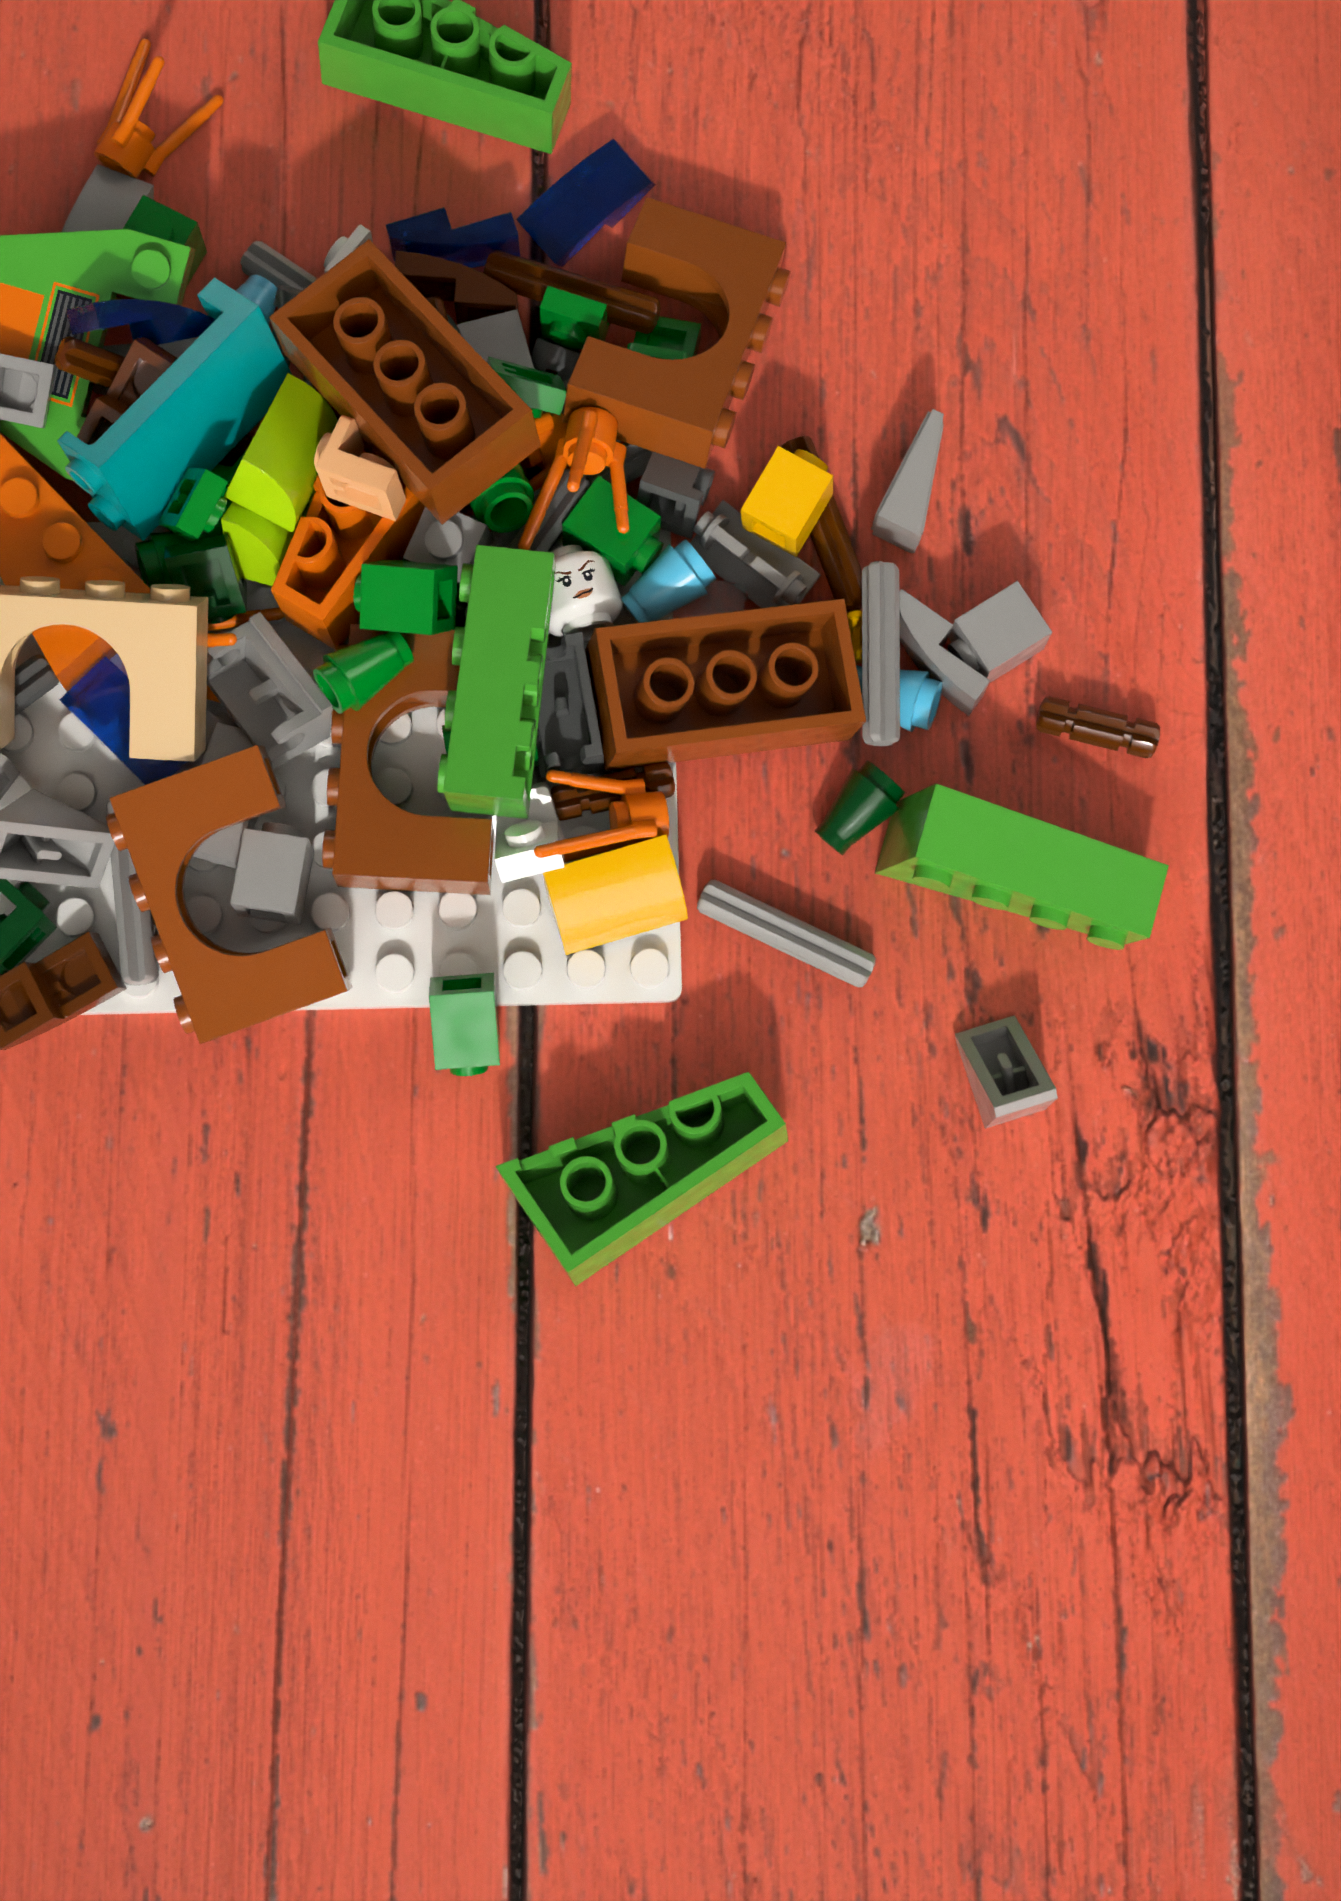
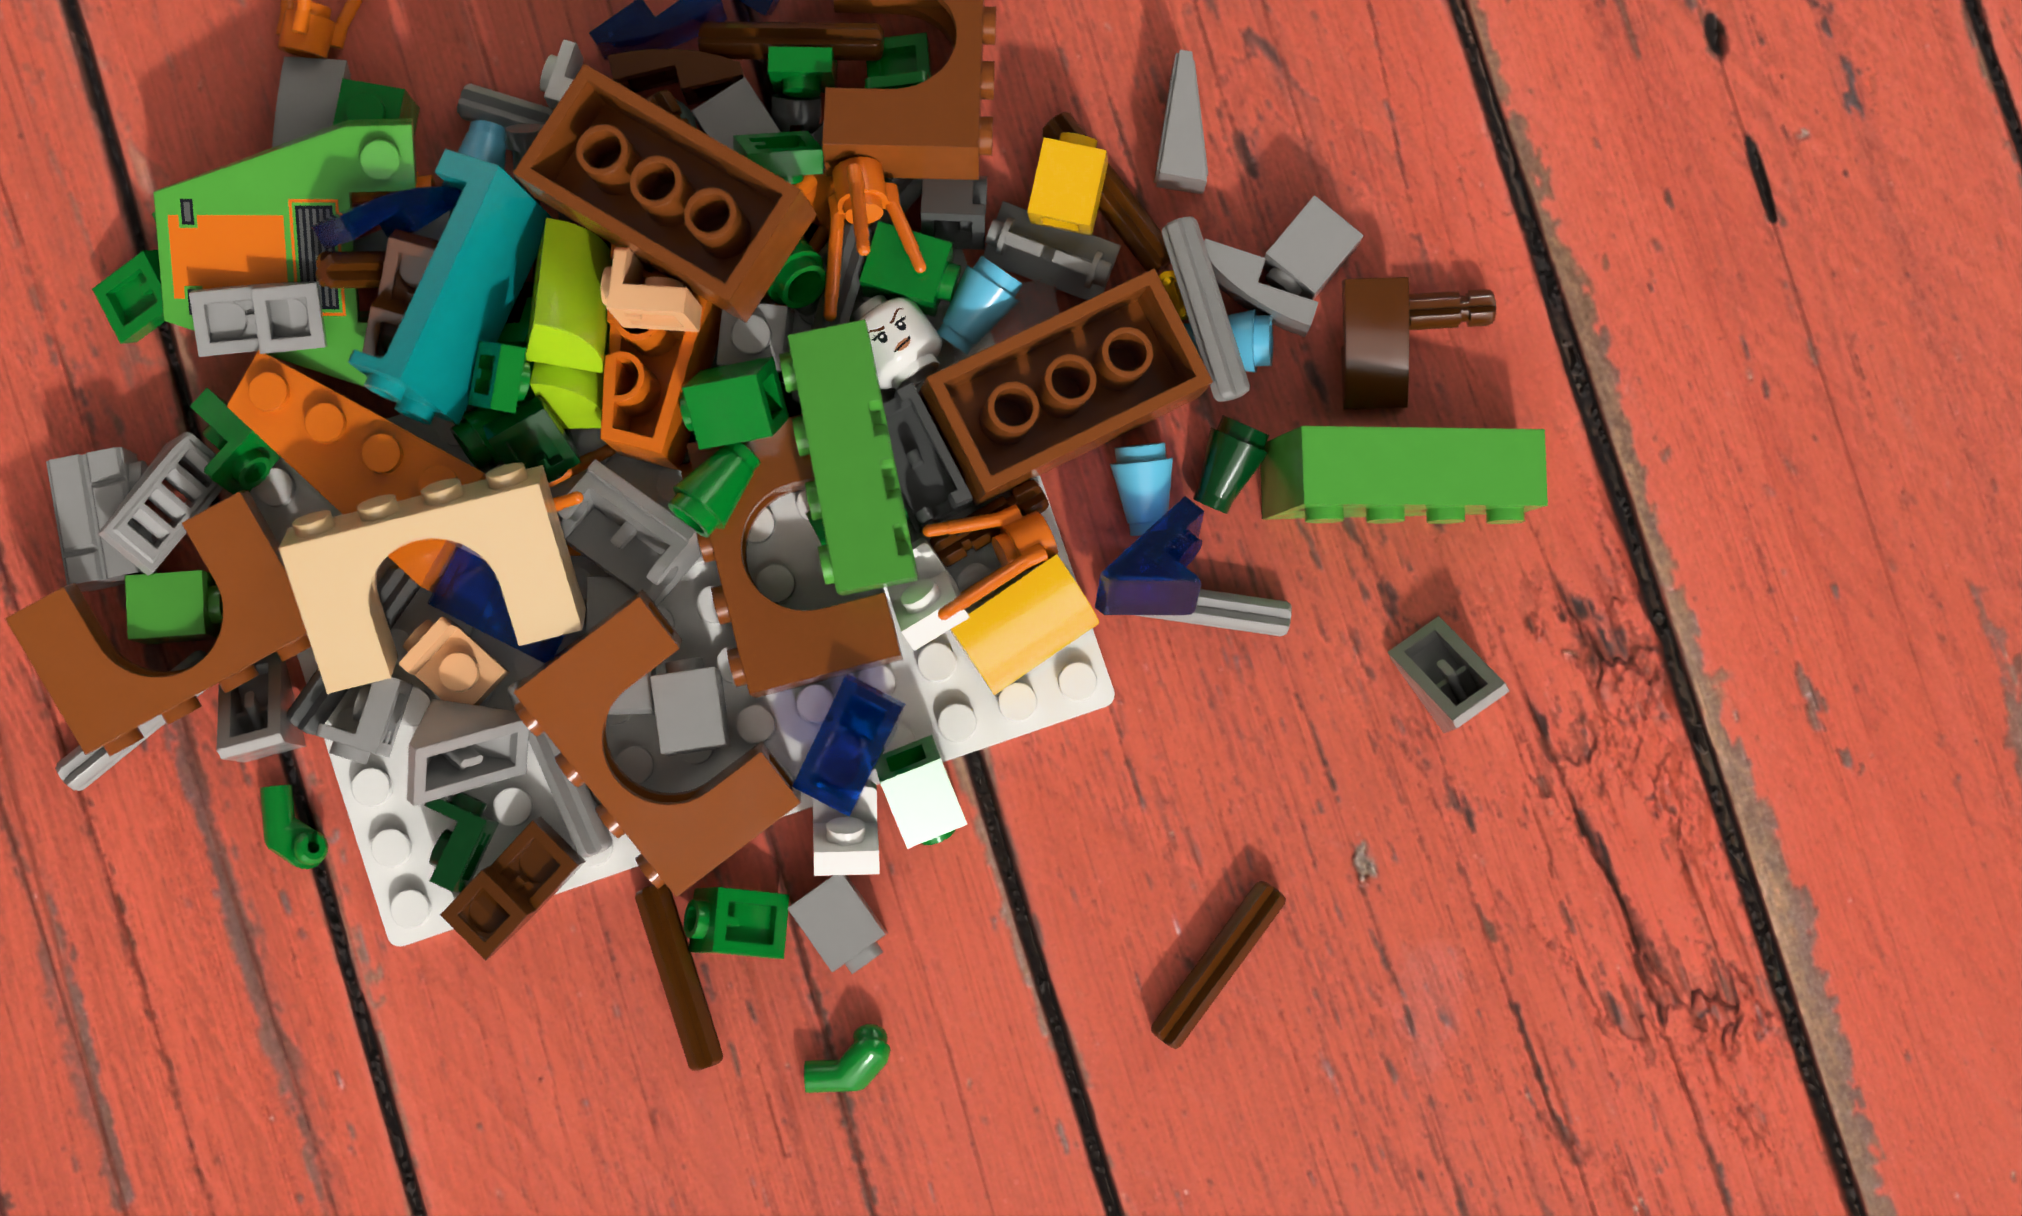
camera: 10 degrees left, 5 degrees up
(62, 761) = (451, 662): none -> light nougat bracket
(178, 1127) = (679, 977): none -> reddish brown axle
(251, 1092) = (737, 922): none -> green bracket
(317, 1267) = (855, 1068): none -> green arm
(348, 1123) = (839, 924): none -> light grey brick
(383, 1033) = (847, 843): none -> white bracket
(412, 951) = (849, 745): none -> clear blue slope
(642, 1172) = (1126, 892): bright green wedge -> none
(698, 1278) = (1218, 964): none -> reddish brown axle
(755, 880) = (1153, 570): none -> clear blue slope
(771, 804) = (1143, 484): none -> medium azure cone
(1033, 739) = (1375, 343): none -> reddish brown slope

